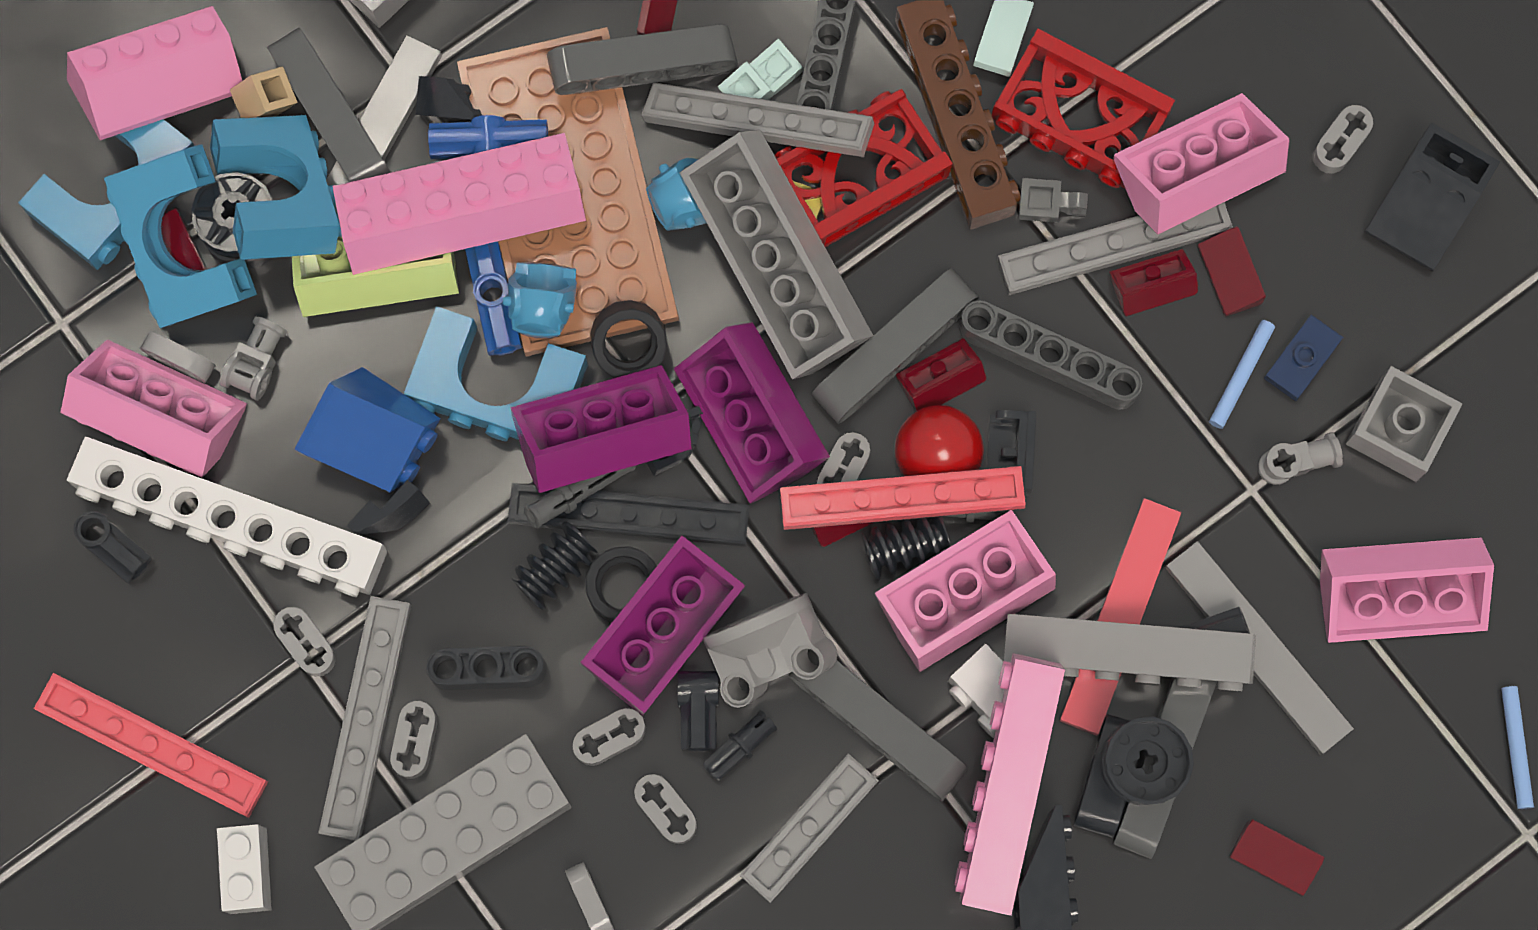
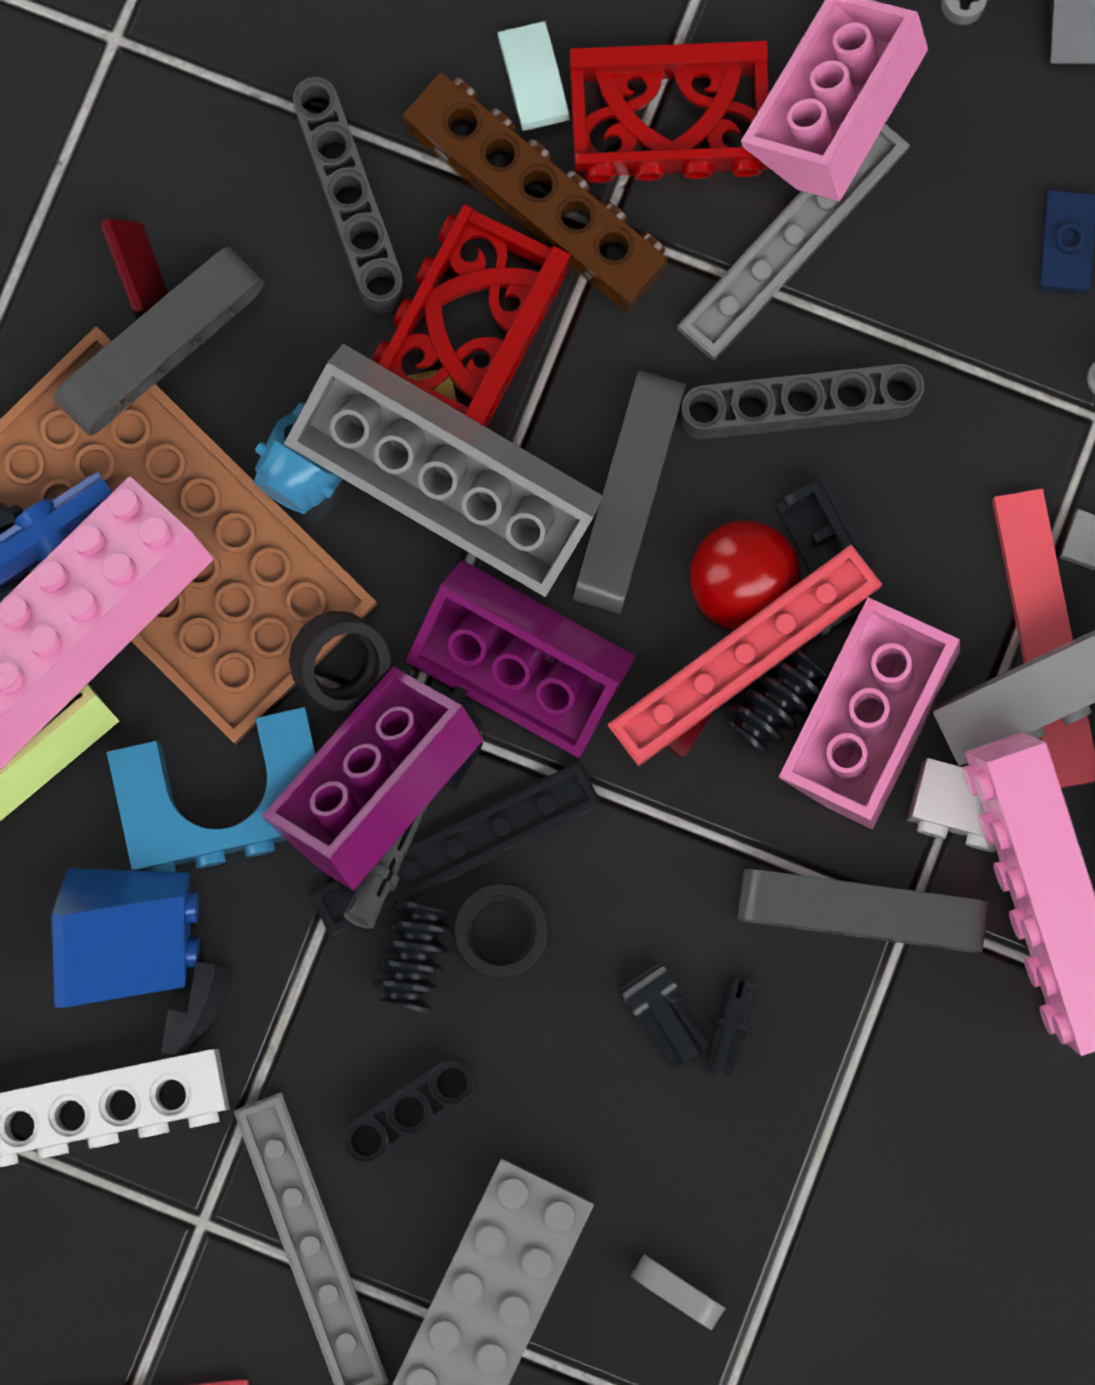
camera: 35 degrees left, 5 degrees up
(296, 646) = (187, 1216): light grey beam -> none
(423, 741) = (367, 1240): light grey beam -> none
(489, 272) = (179, 722): blue piece -> none
(540, 298) = (217, 673): dark azure helmet -> none
(604, 728) = (597, 1110): light grey beam -> none
(658, 815) = (689, 1154): light grey beam -> none
(662, 625) = (575, 950): magenta slope -> none
(764, 75) = (299, 282): light aqua slope -> none
(768, 648) = (701, 904): light grey piece -> none
(778, 121) = (319, 333): light grey tile -> none
(809, 828) = (858, 1068): light grey tile -> none
(837, 457) = (641, 649): light grey beam -> none
(942, 376) = (697, 493): dark red slope -> none
(1044, 200) = (691, 235): dark grey plate -> none
(1154, 282) = (860, 253): dark red slope -> none
(1232, 272) = (936, 193): dark red slope -> none
(1242, 374) = (1014, 299): light blue bar -> none

